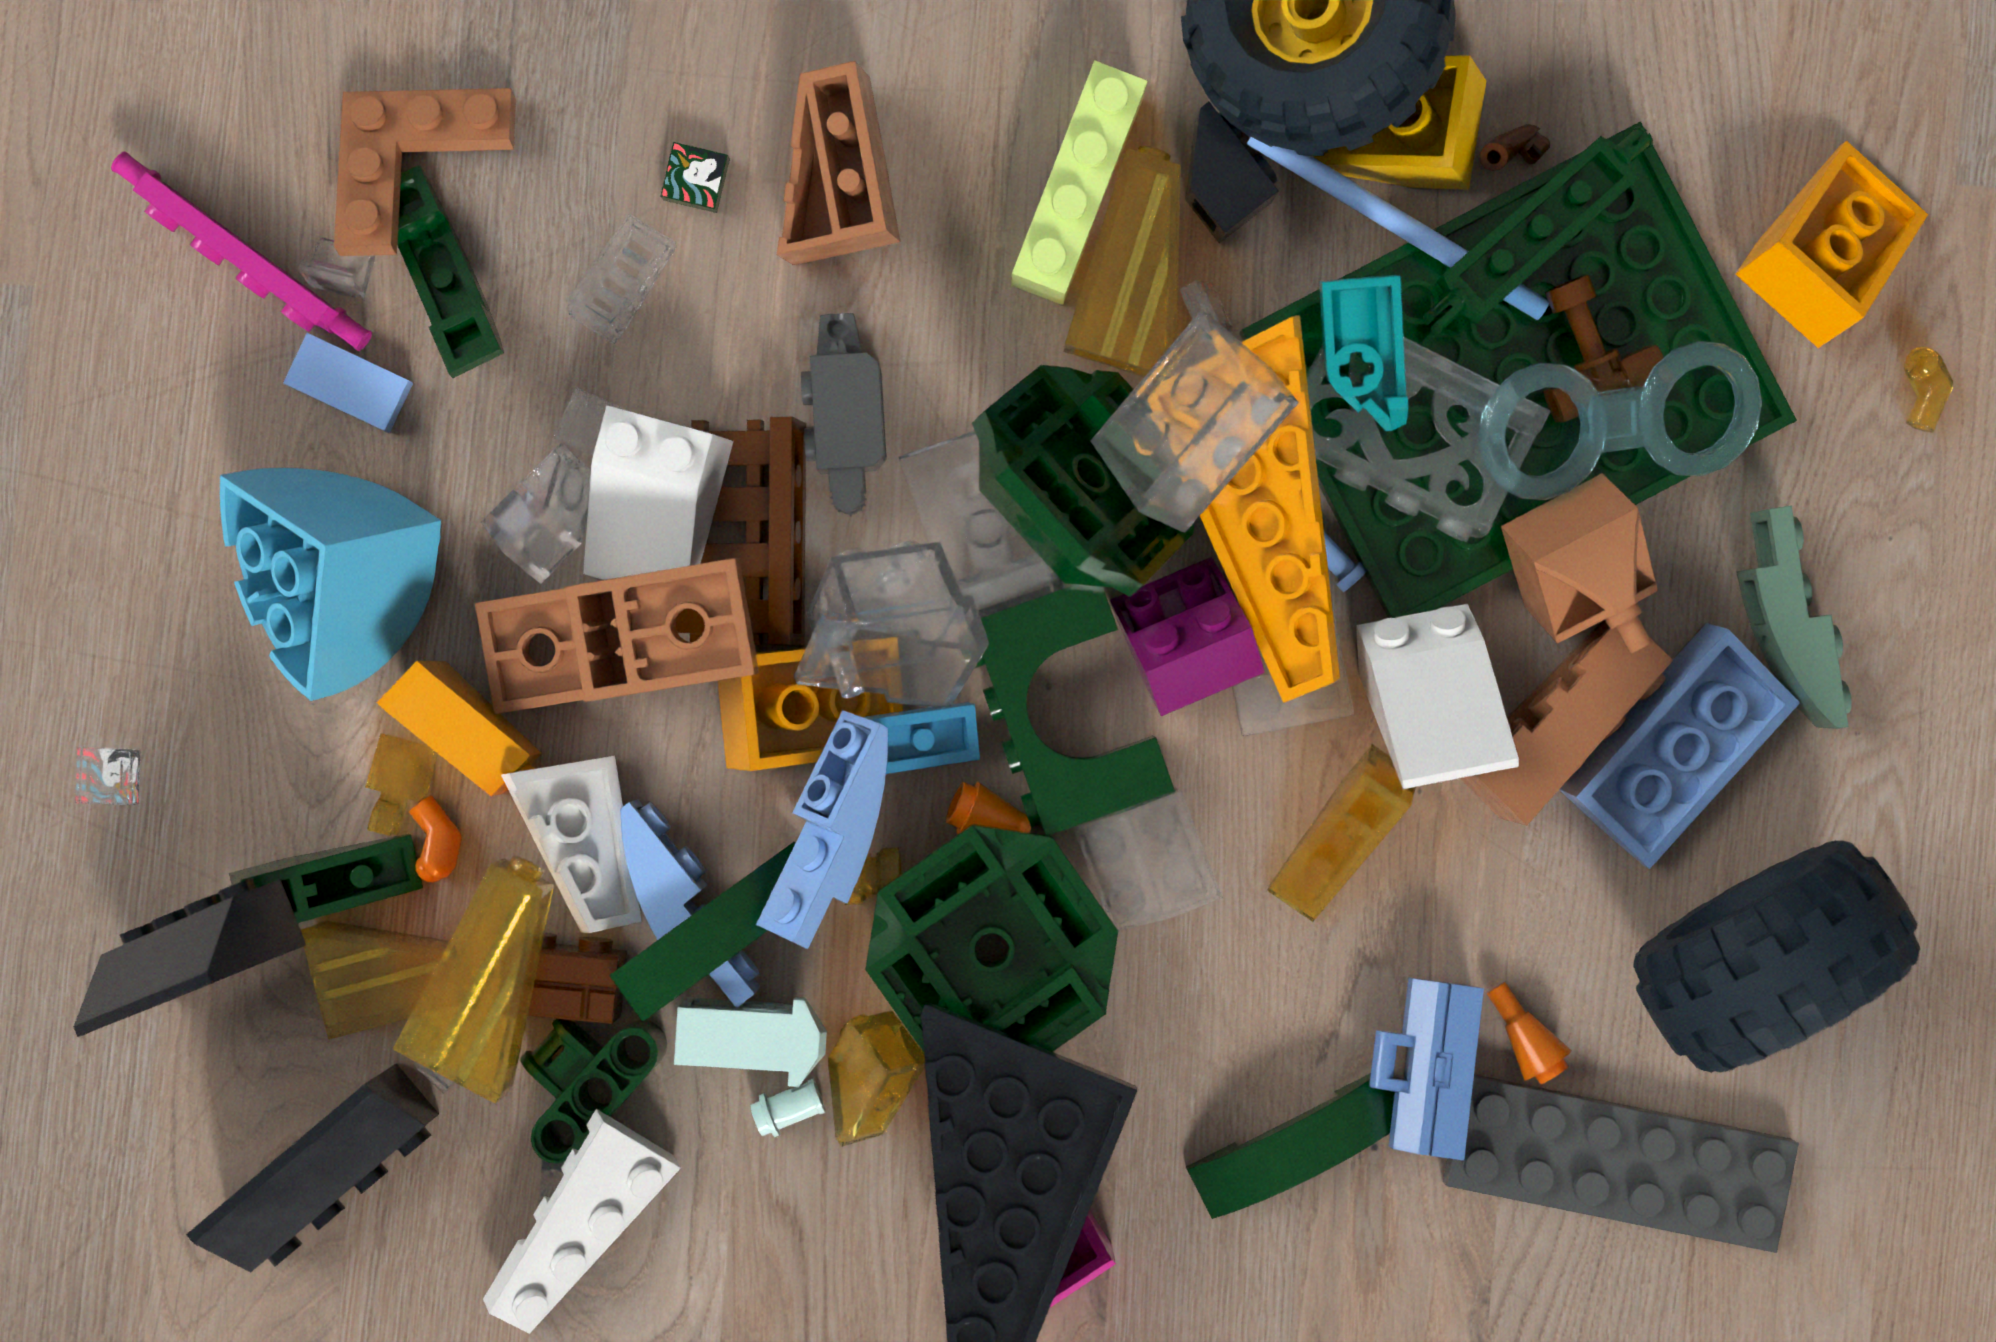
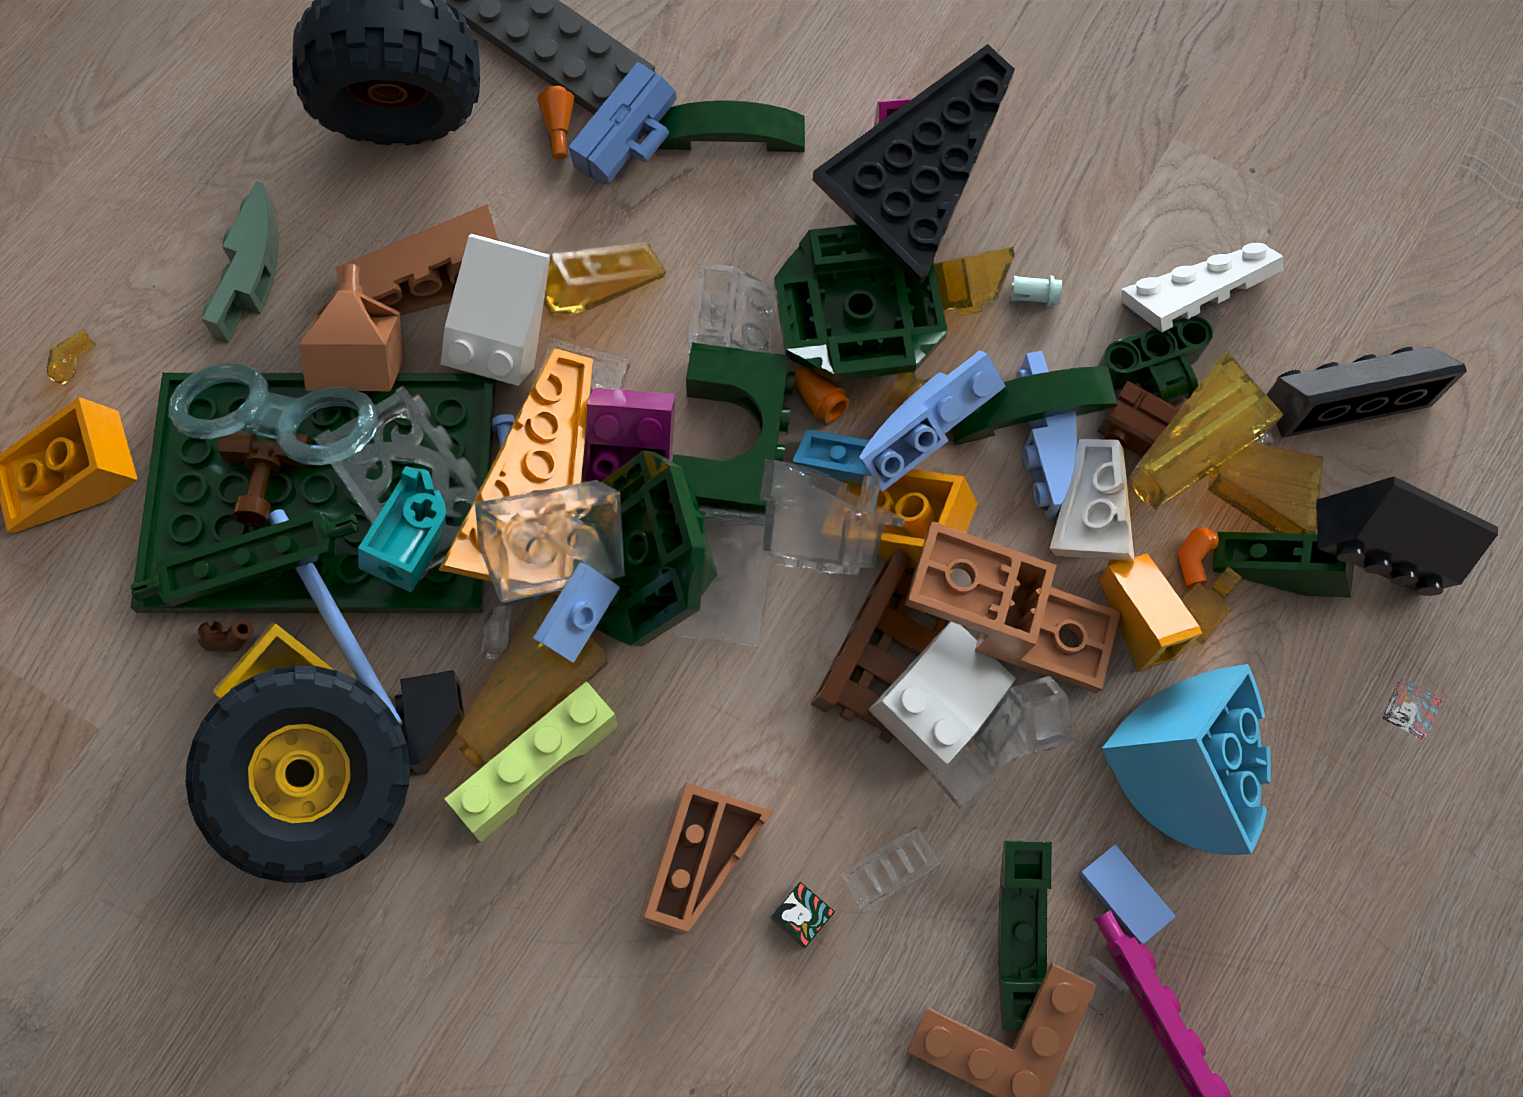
camera: 155 degrees left, 20 degrees down
(750, 1036) = (1032, 326): light aqua piece -> none
(846, 411) = (778, 688): dark grey hinge -> none
(1117, 358) = (576, 612): none -> light blue plate
(1680, 744) = (353, 226): light blue slope -> none

